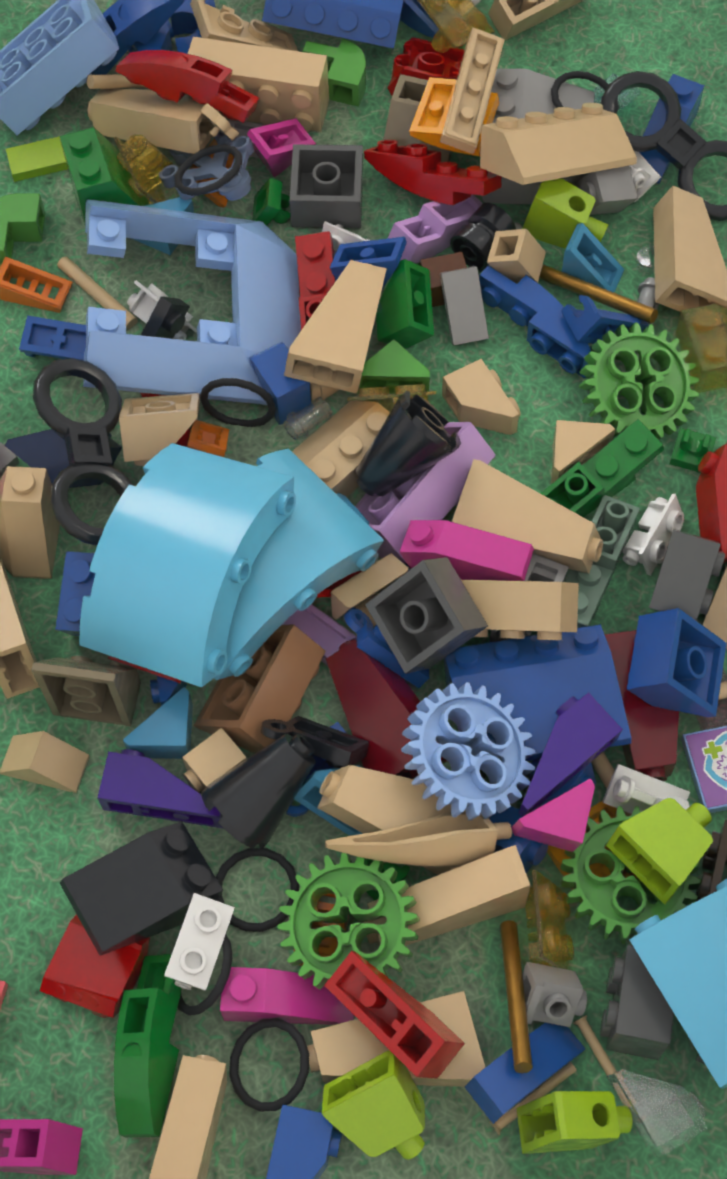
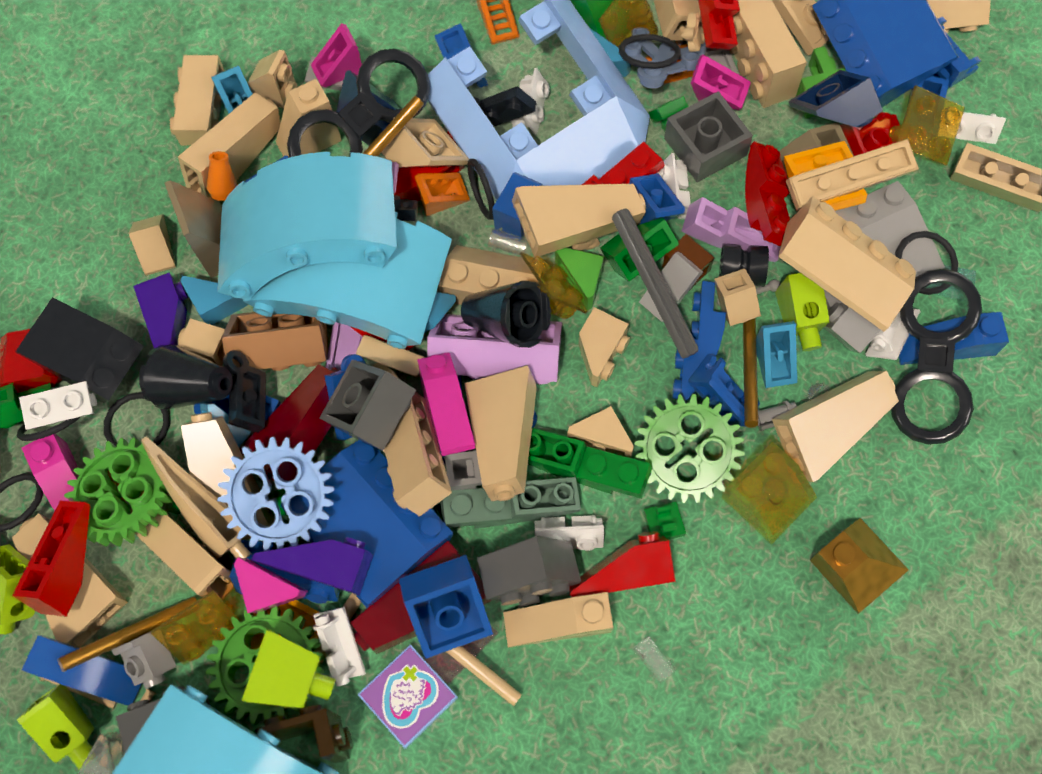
camera: 60 degrees right, 5 degrees up
(42, 632) = (220, 176): none -> orange cone
(94, 289) = (520, 61): tan bar -> none
(134, 424) = (394, 127): none -> pearl gold bar
(383, 54) = (841, 98): none -> dark blue slope
(464, 304) = (655, 283): none -> dark grey axle

